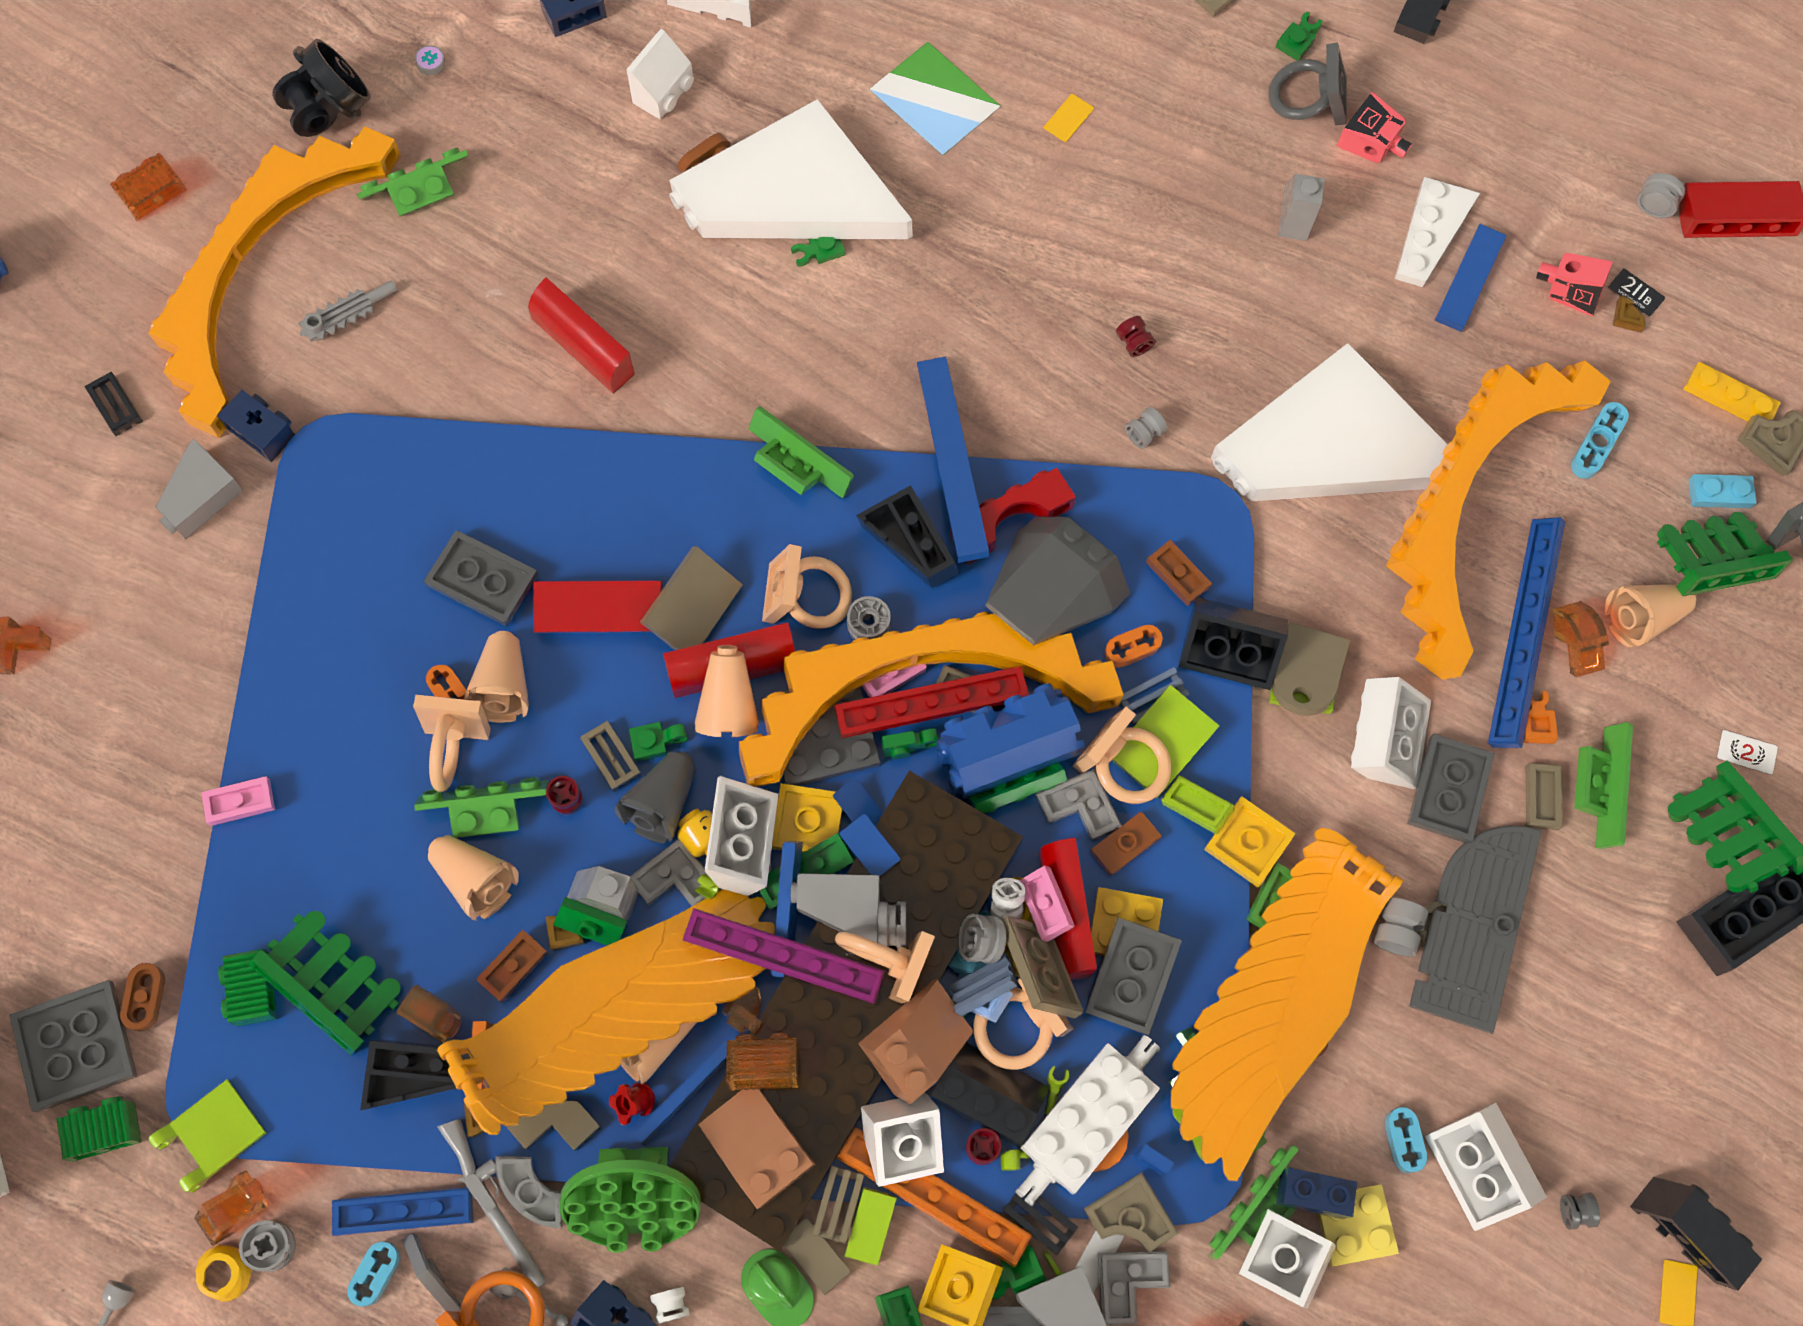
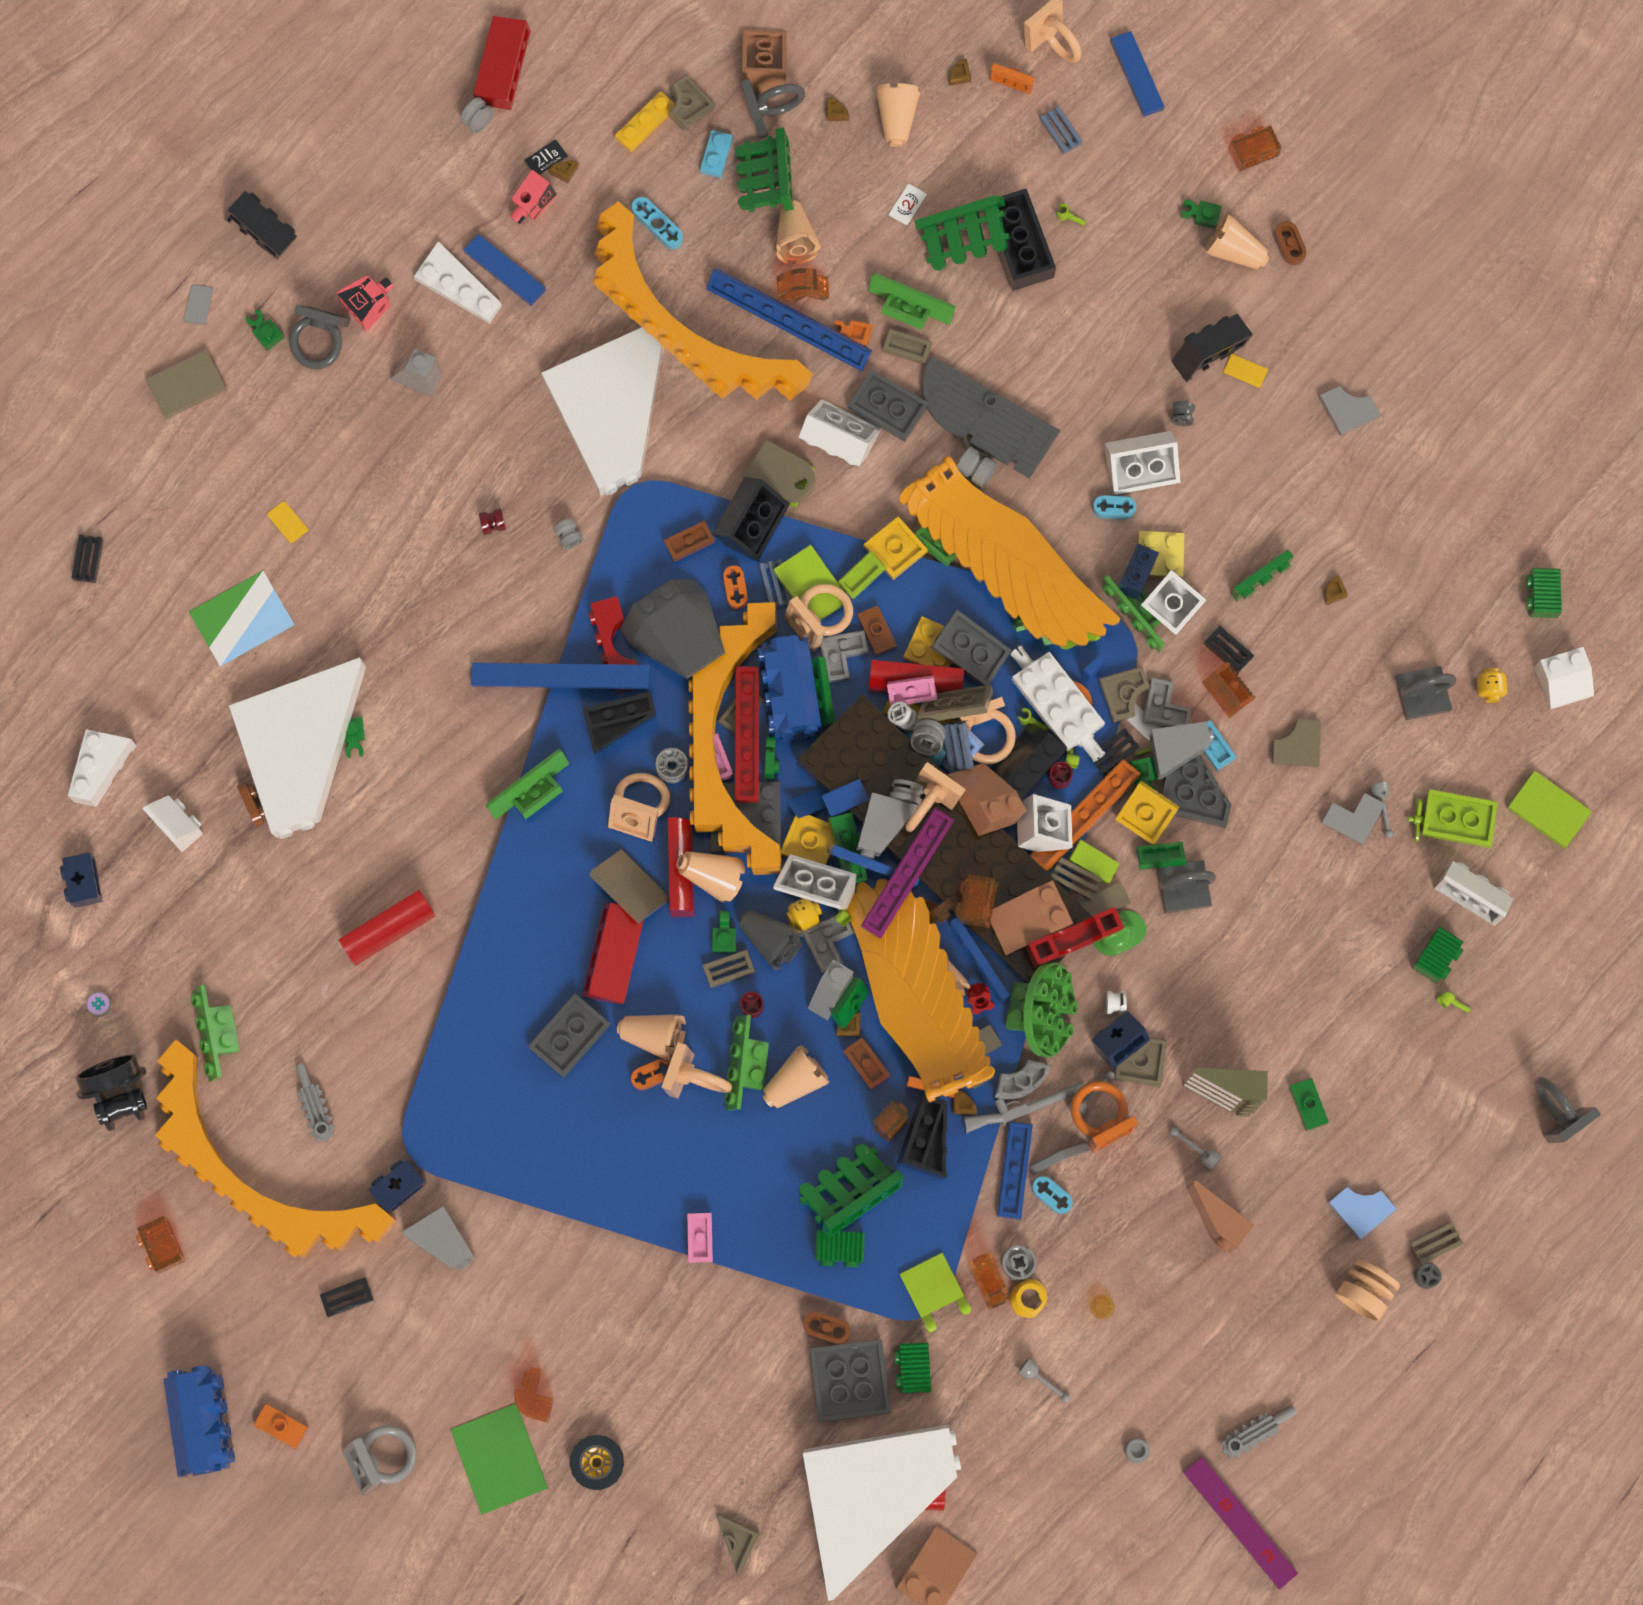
camera: 75 degrees left, 5 degrees up
(744, 1222) = (1075, 937): none -> red arch

